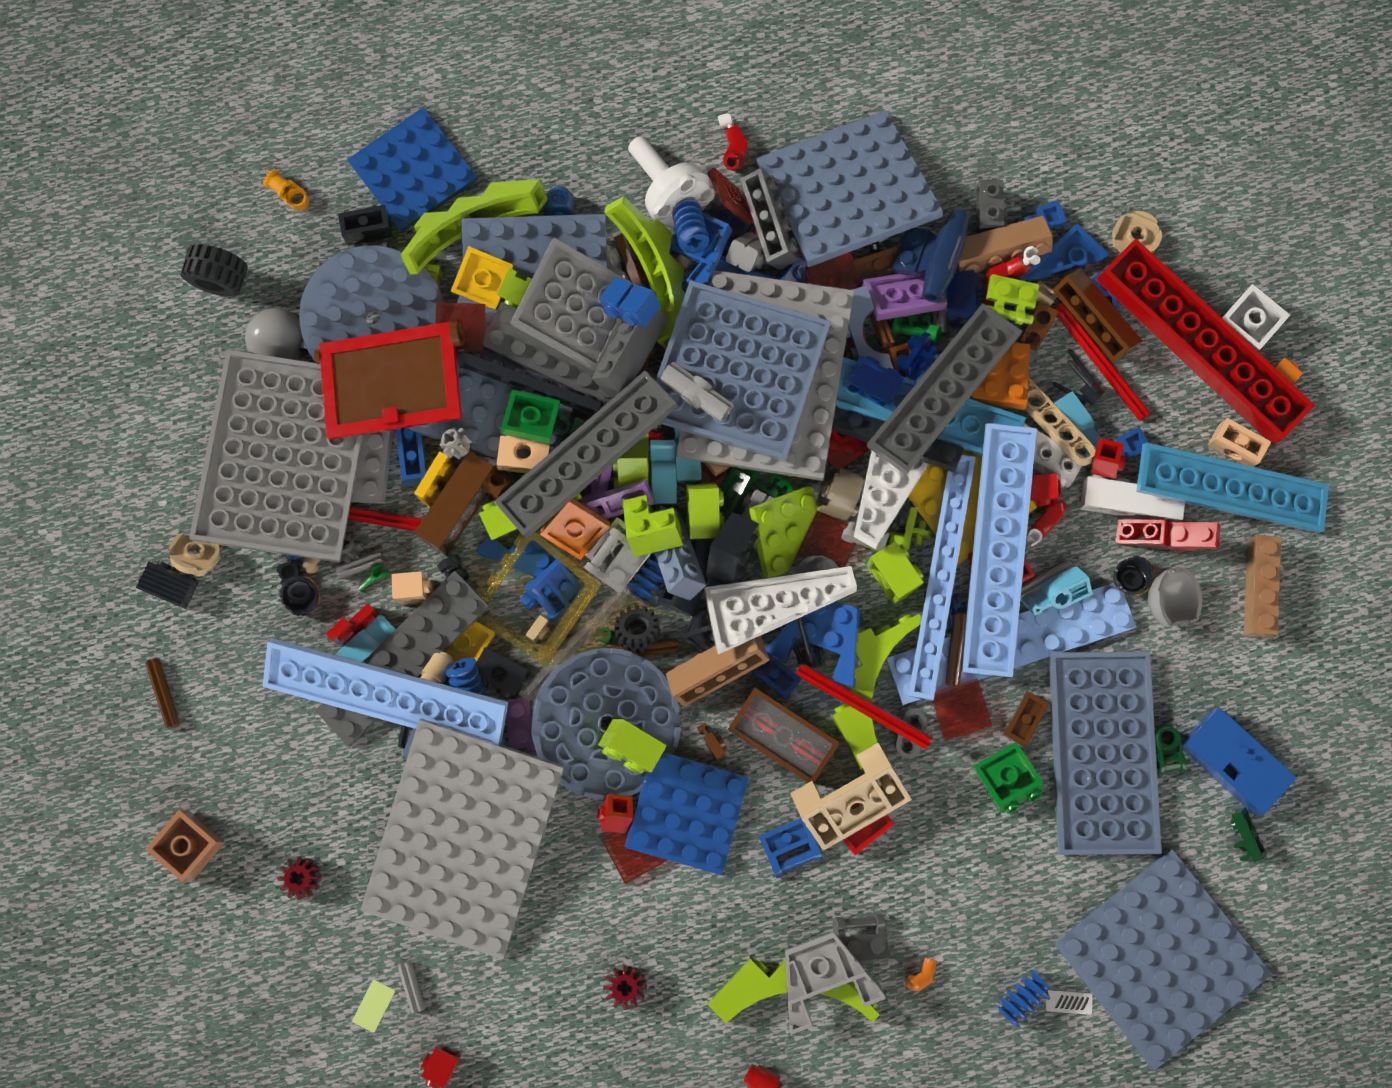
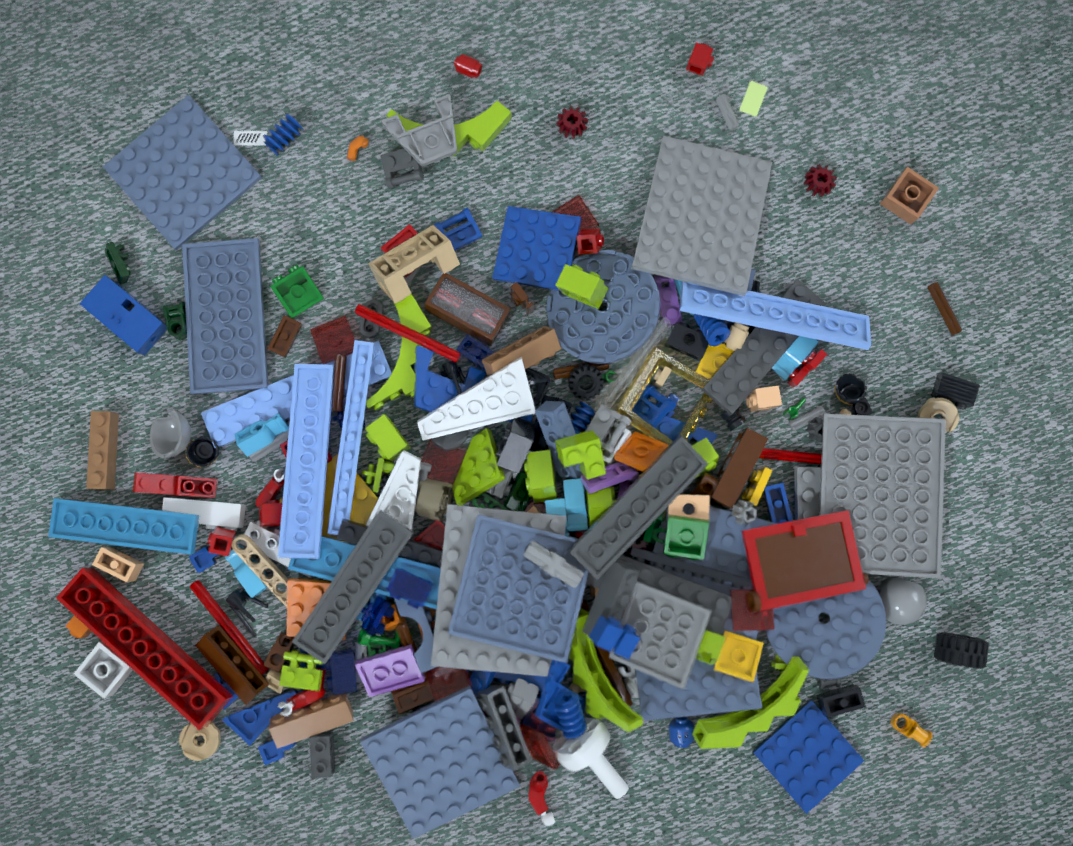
camera: 170 degrees right, 5 degrees up
(933, 254) = (366, 706): dark blue plate -> none

